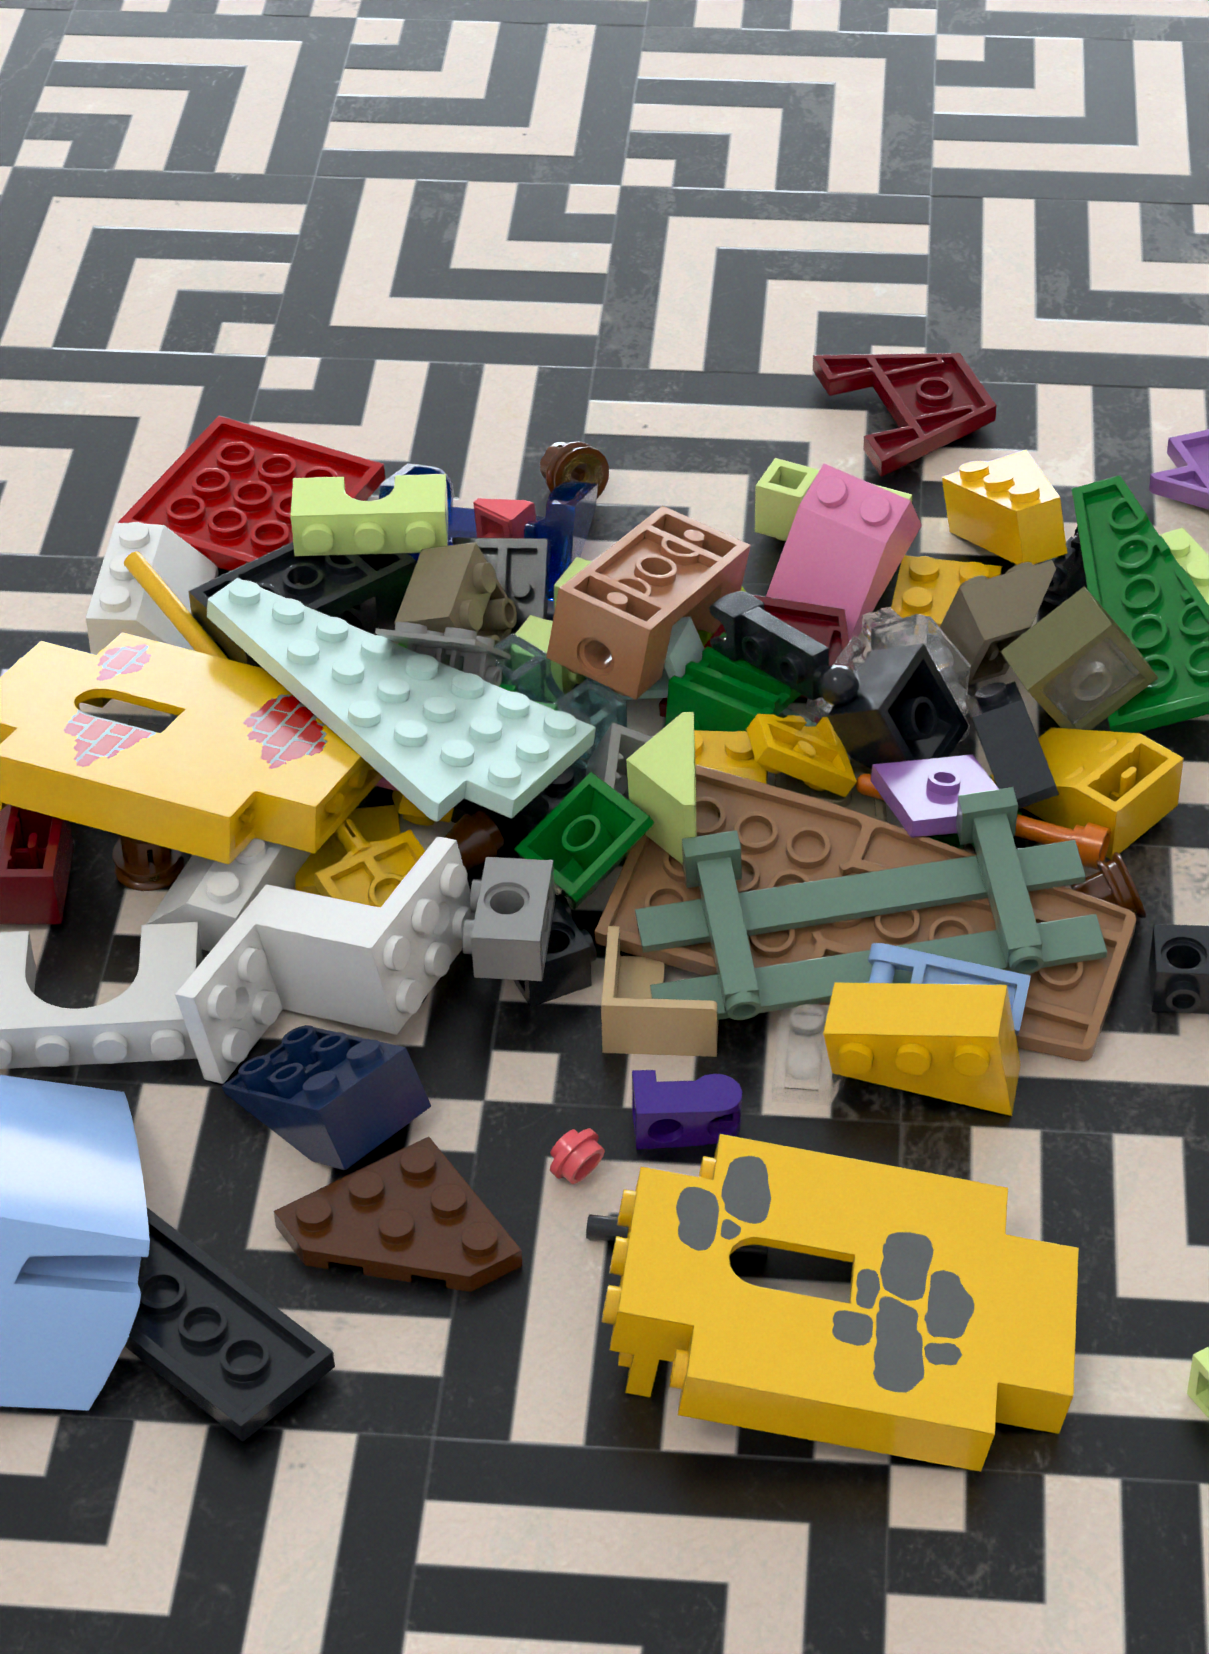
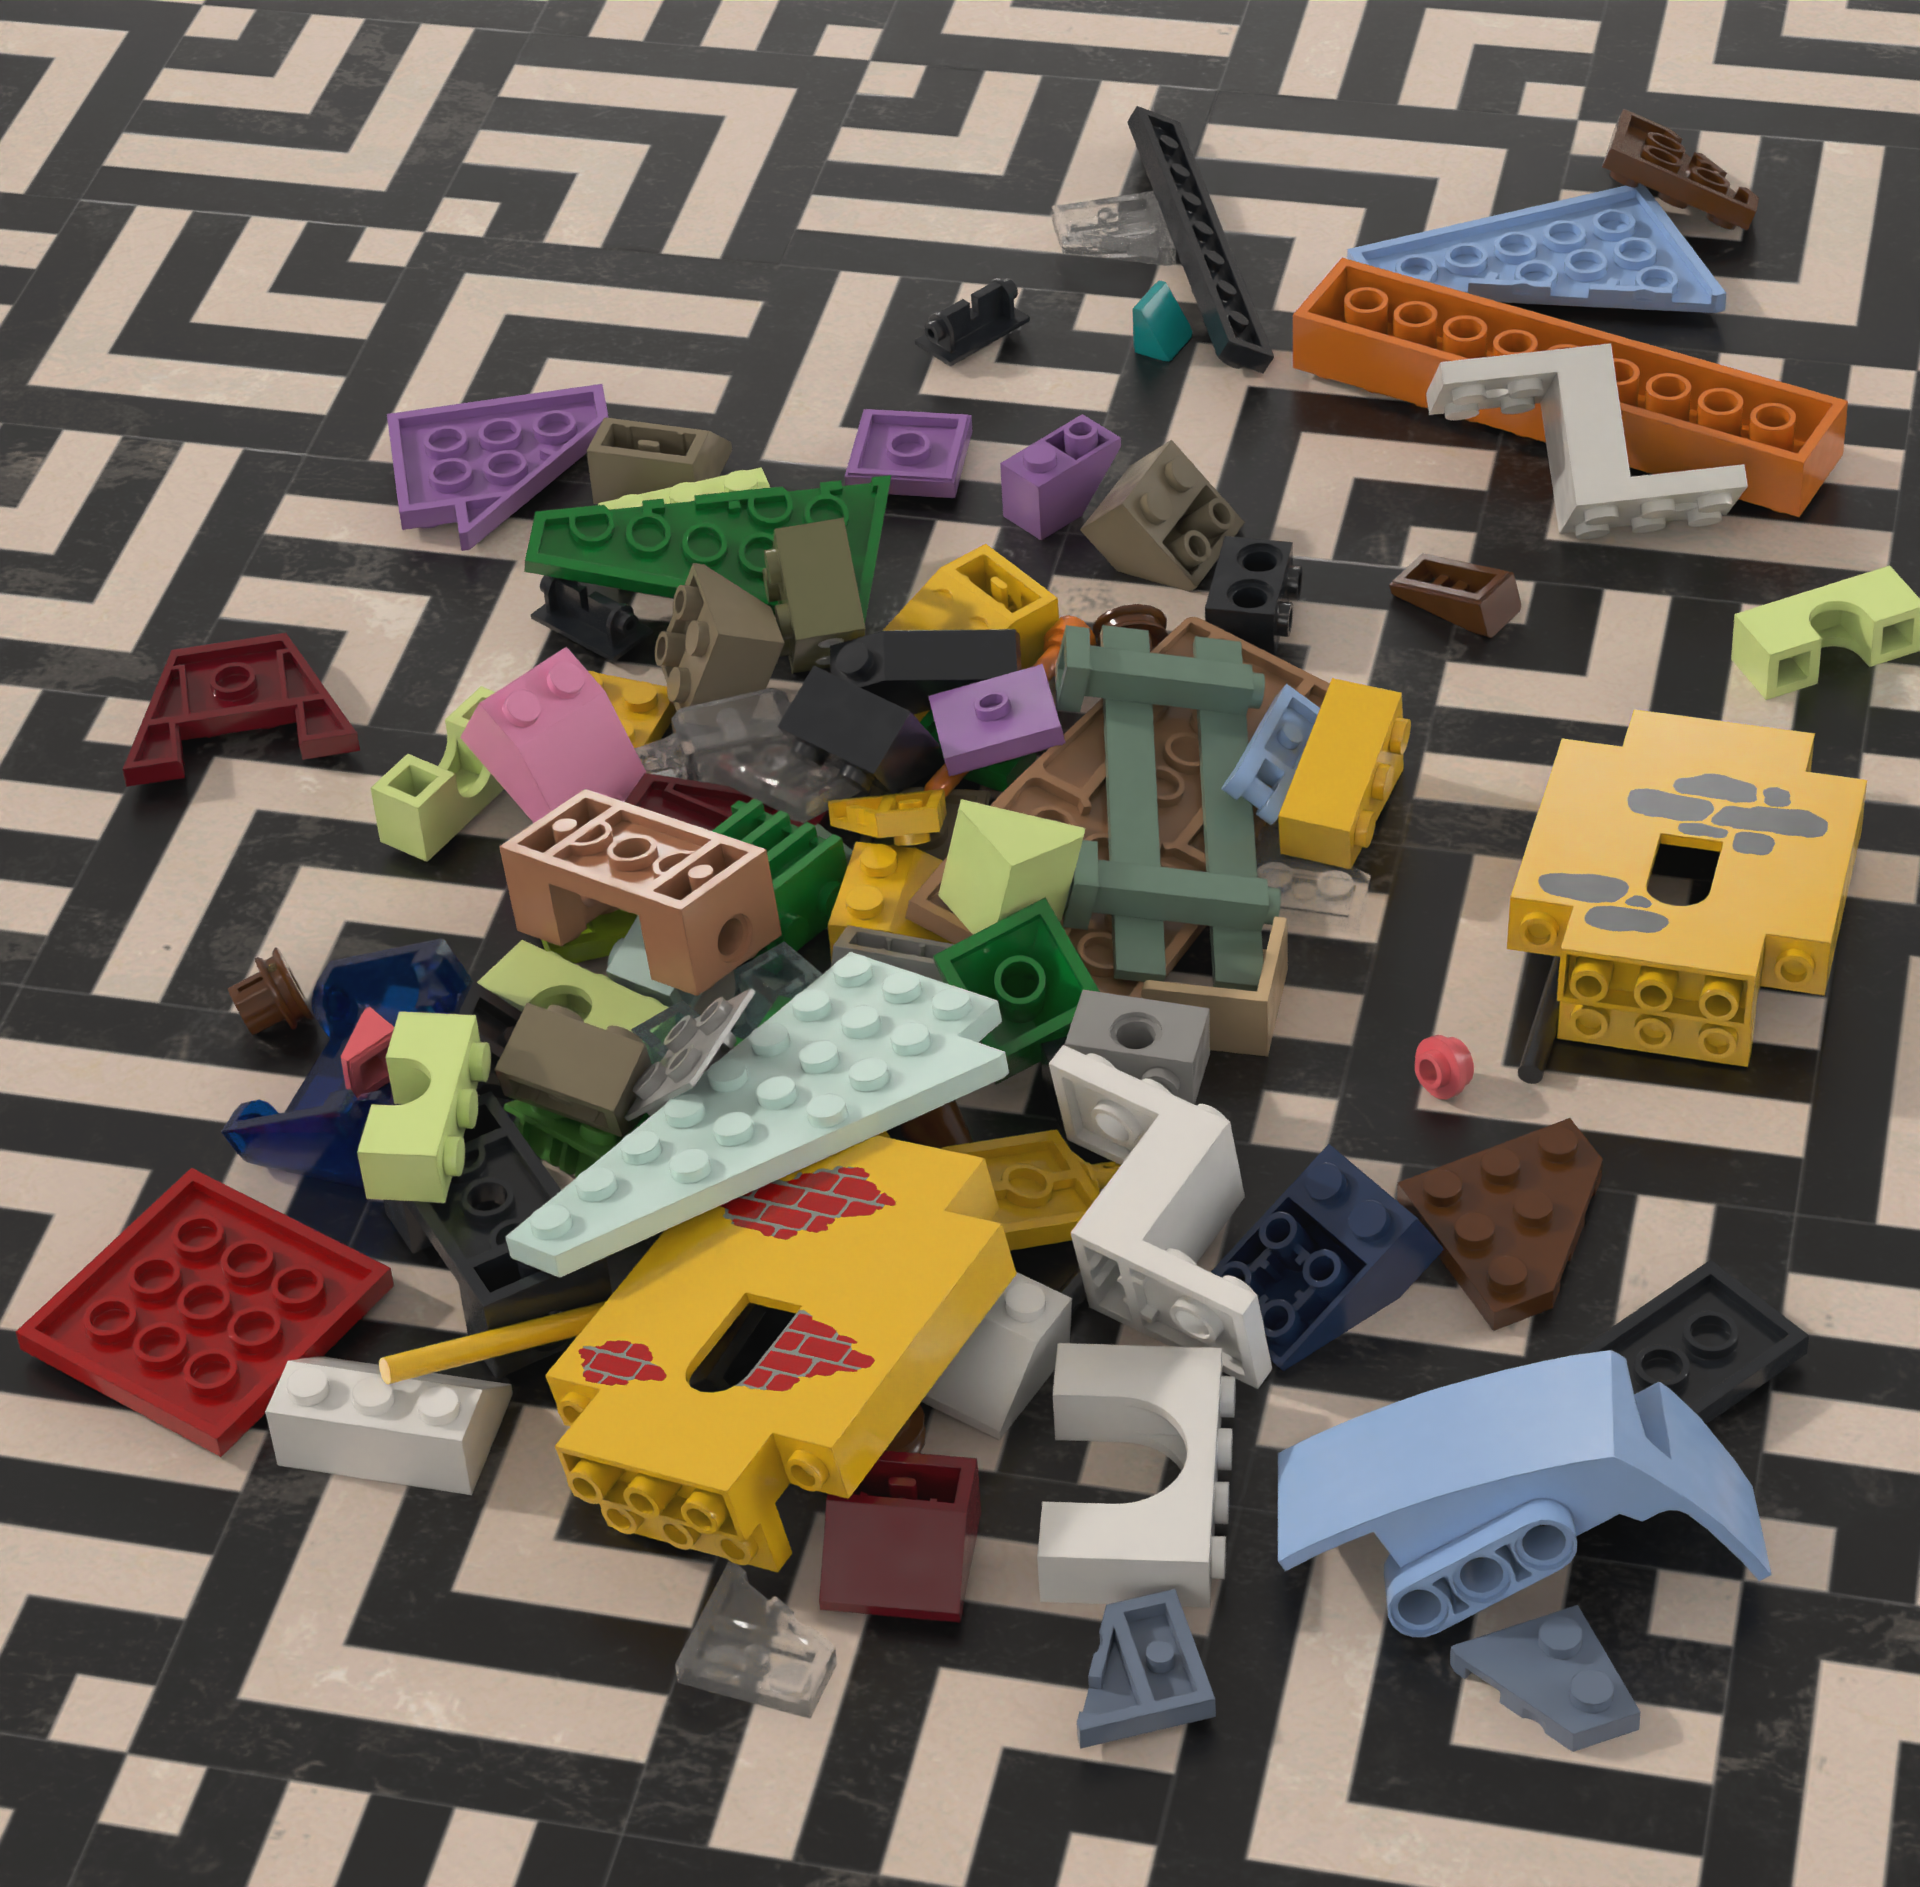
camera: 80 degrees left, 0 degrees up
(684, 1111) = (1386, 994): dark purple leg -> none
(780, 650) = (773, 783): black plate -> none
(1006, 508) = (514, 621): yellow wedge -> none

